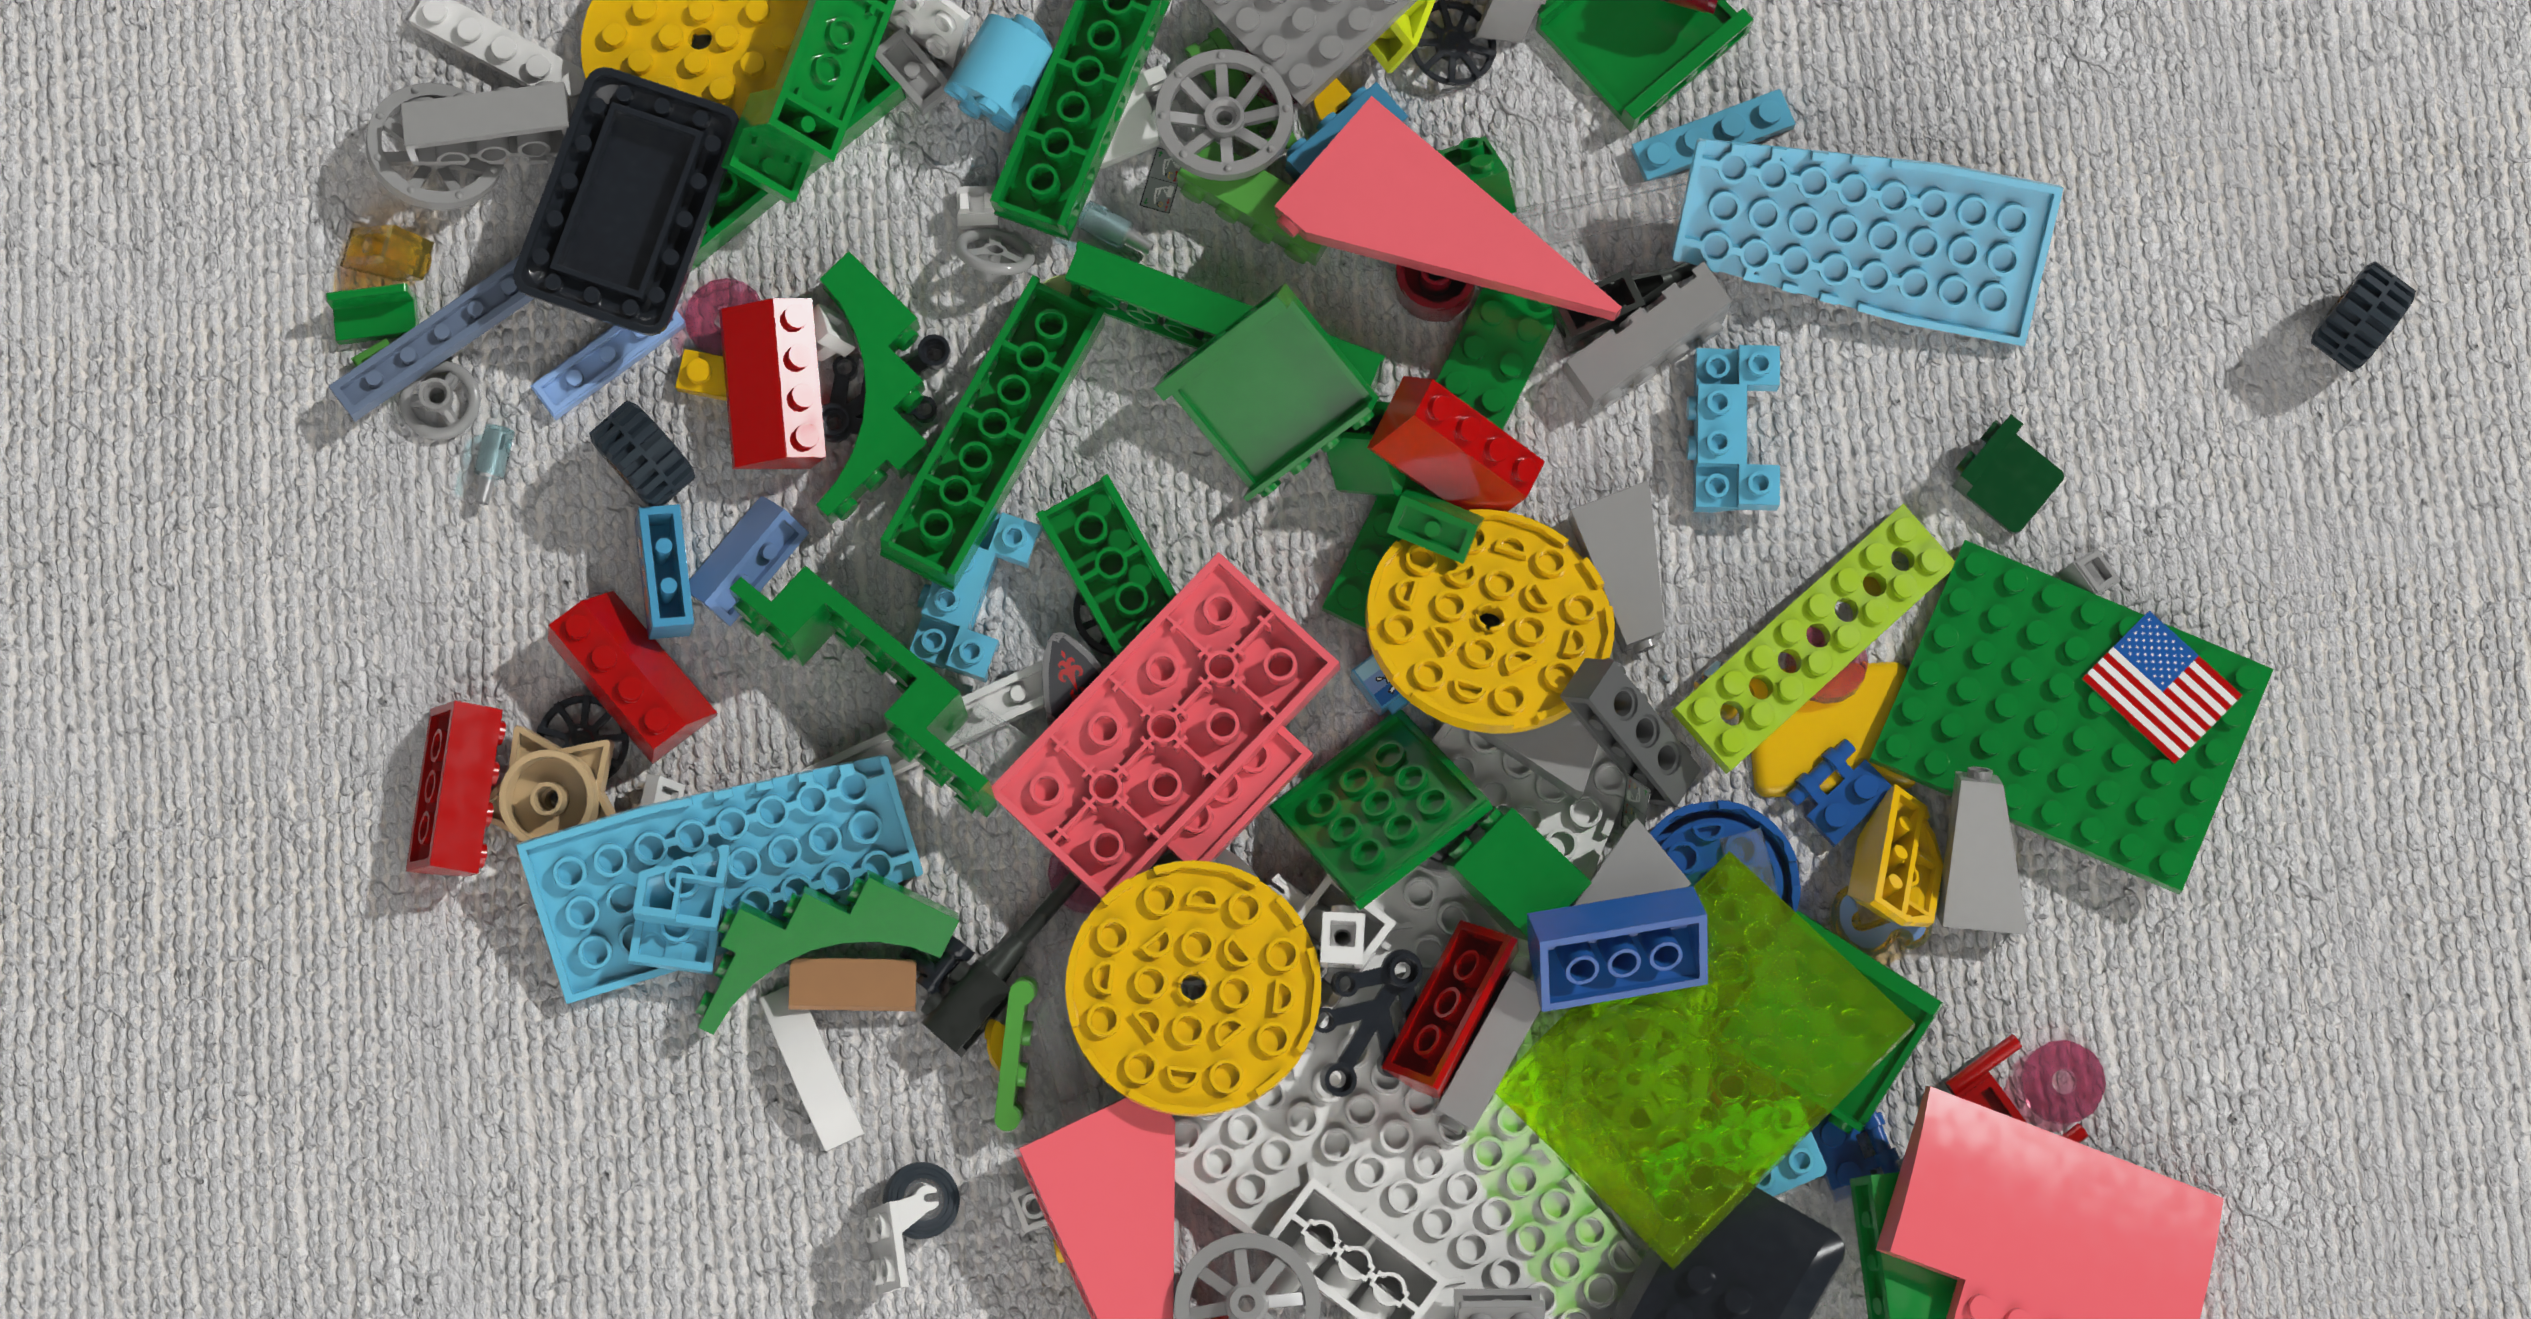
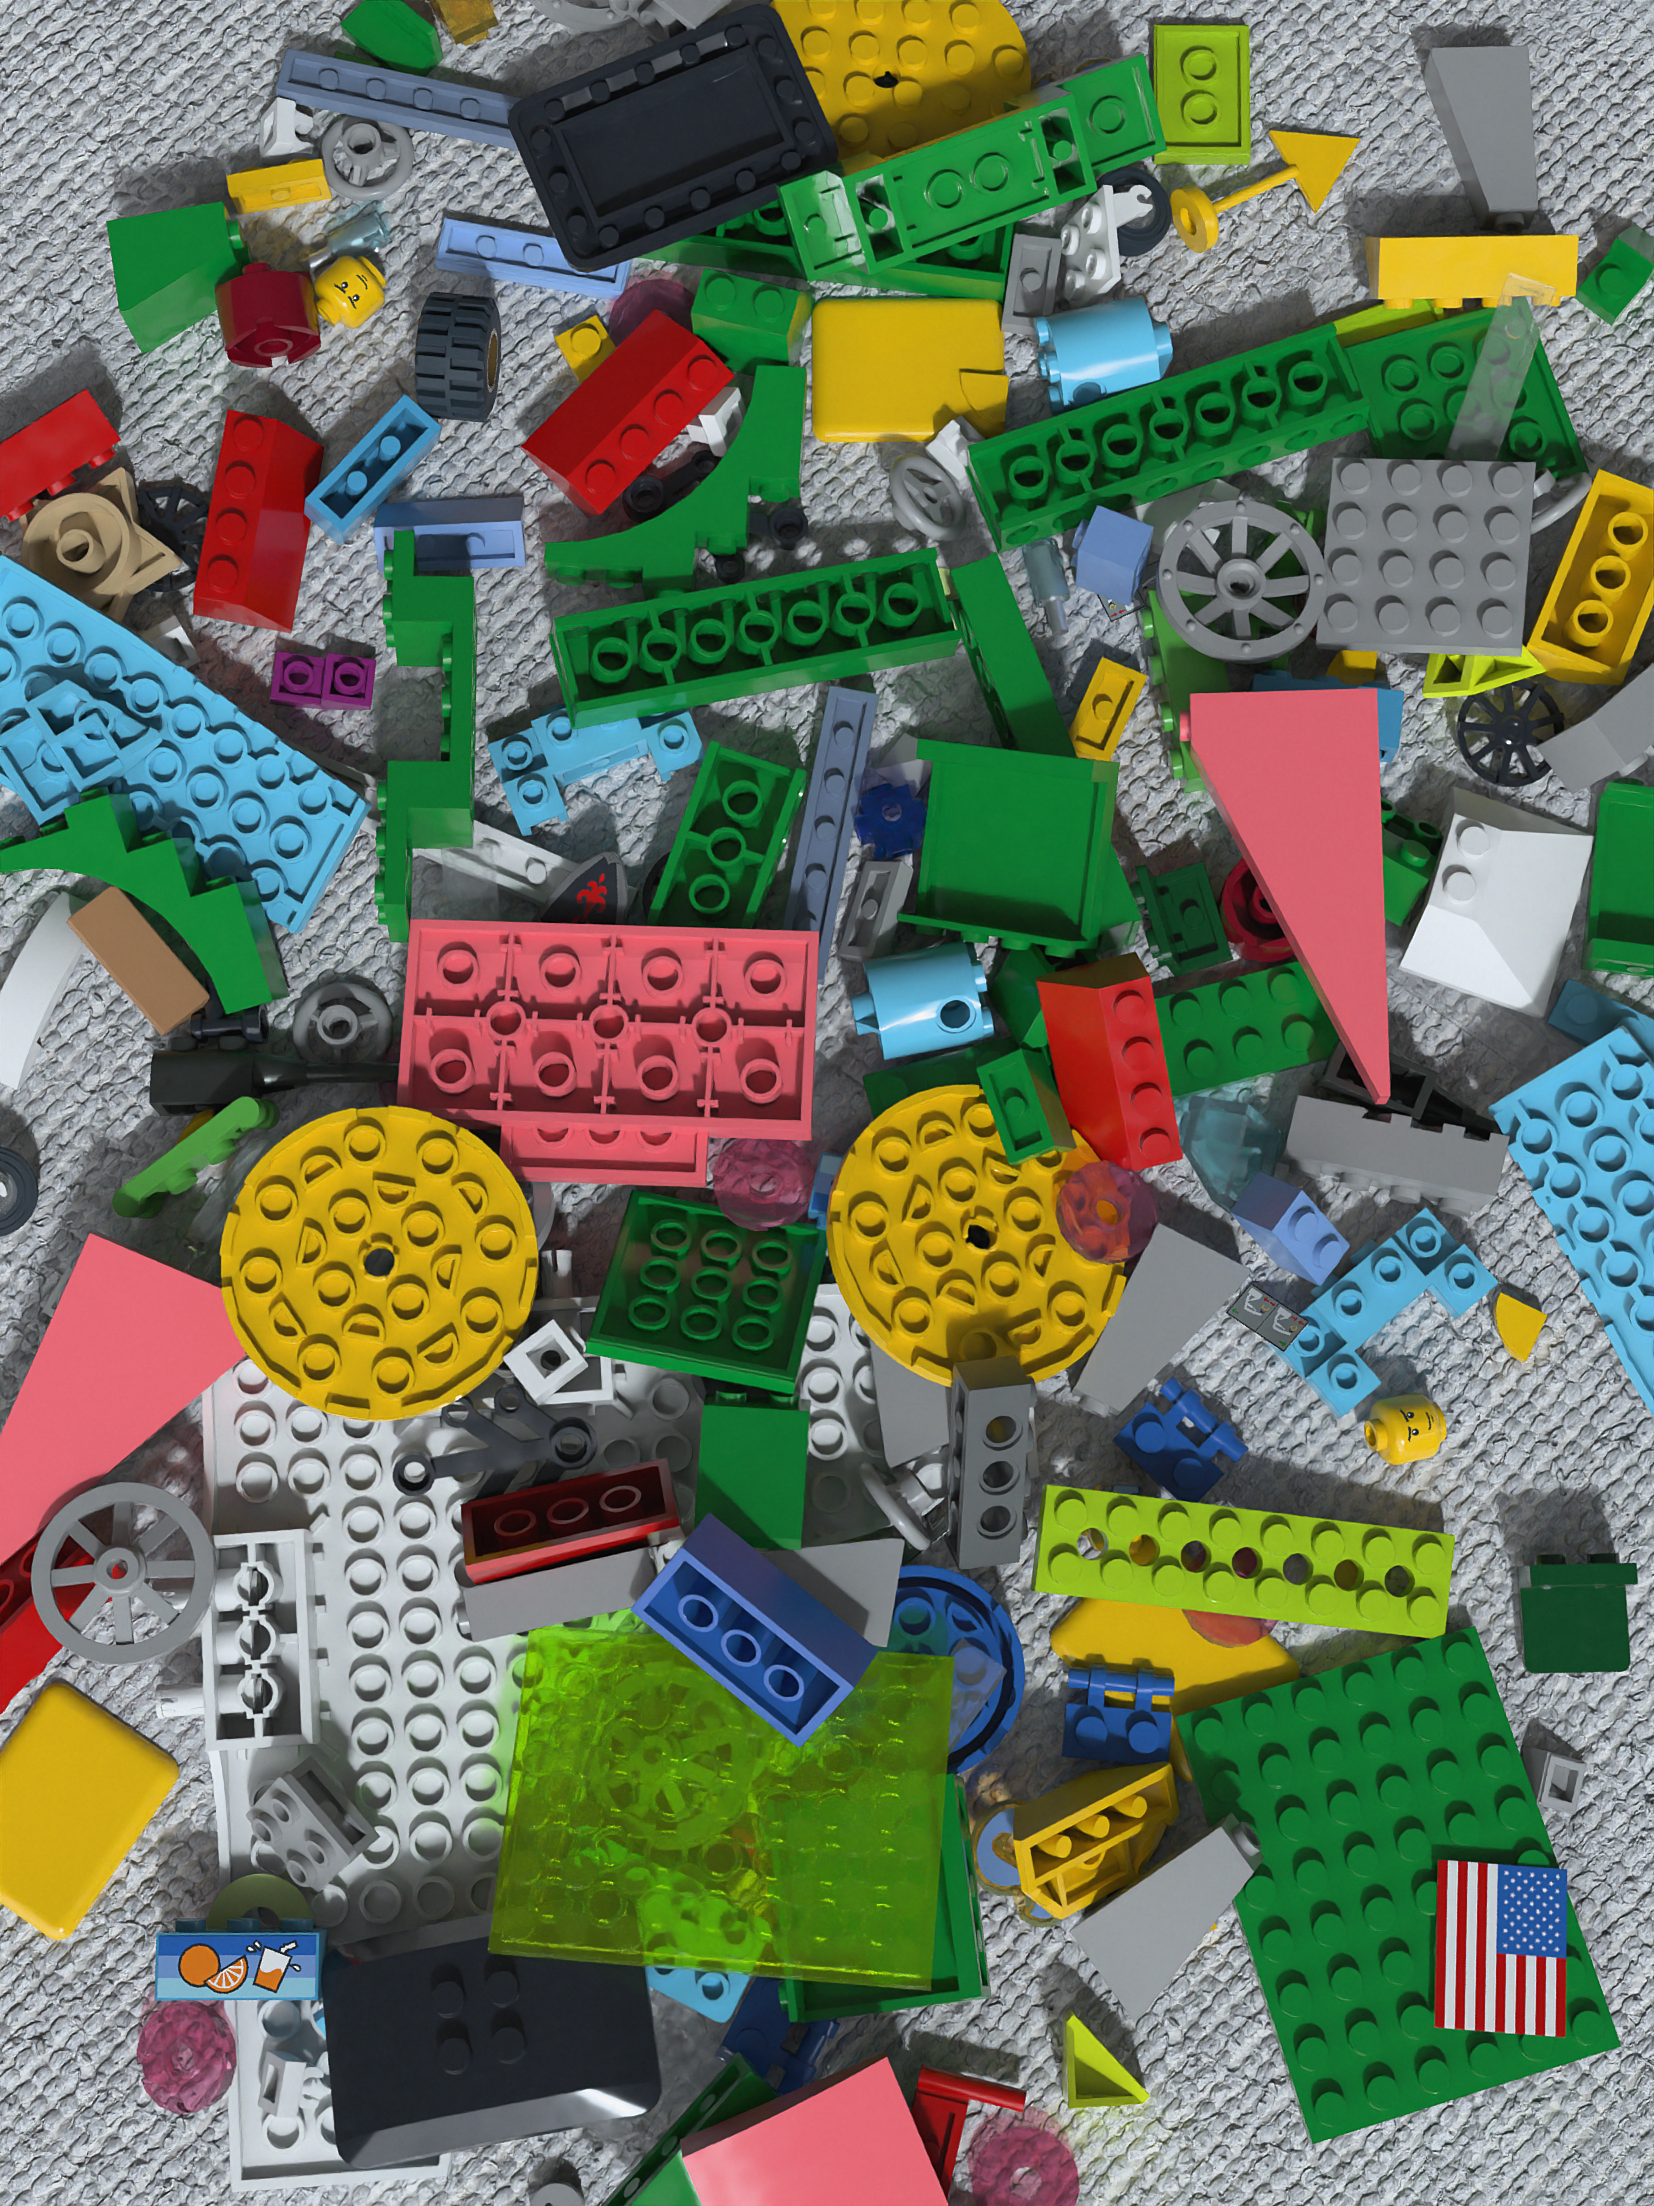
camera: 55 degrees right, 0 degrees up
(376, 440) = (278, 133): none -> white tile
(414, 579) = (171, 266): none -> green slope
(419, 459) = (279, 186): none -> yellow plate
(500, 550) = (268, 316): none -> dark red brick
(527, 486) = (349, 291): none -> yellow head
(770, 721) = (323, 683): none -> magenta slope
(783, 255) = (750, 320): none -> green slope
(893, 192) = (897, 366): none -> yellow piece
(957, 161) = (986, 395): none -> yellow tile
(979, 906) = (330, 1017): none -> light grey piece
(1135, 175) = (1111, 554): none -> medium blue brick
(1140, 484) = (828, 816): none -> sand blue plate
(1150, 413) = (903, 768): none -> light grey slope
(1180, 466) = (886, 837): none -> clear blue brick
(1225, 264) = (1105, 710): none -> yellow plate
(1227, 510) = (875, 911): none -> light grey plate
(1312, 528) = (924, 1000): none -> medium azure cylinder
(1352, 737) = (757, 1208): none -> clear pink tile
(1398, 331) = (1184, 918): none -> dark green bracket
(1530, 552) = (1087, 1231): none -> clear pink tile
(1551, 143) = (1498, 903): none -> white slope
(1566, 431) = (1228, 1146): none -> clear light blue slope
(1610, 802) = (900, 1501): none -> light grey piece
(1642, 436) = (1290, 1228): none -> medium blue brick
(1680, 497) = (1267, 1317): none -> light grey sticker
(1710, 628) = (1169, 1455): none -> blue plate
(1811, 359) = (1517, 1325): none -> yellow tile
(1816, 476) = (1405, 1428): none -> yellow head
(2031, 985) = (1092, 2072): none -> neon yellow slope

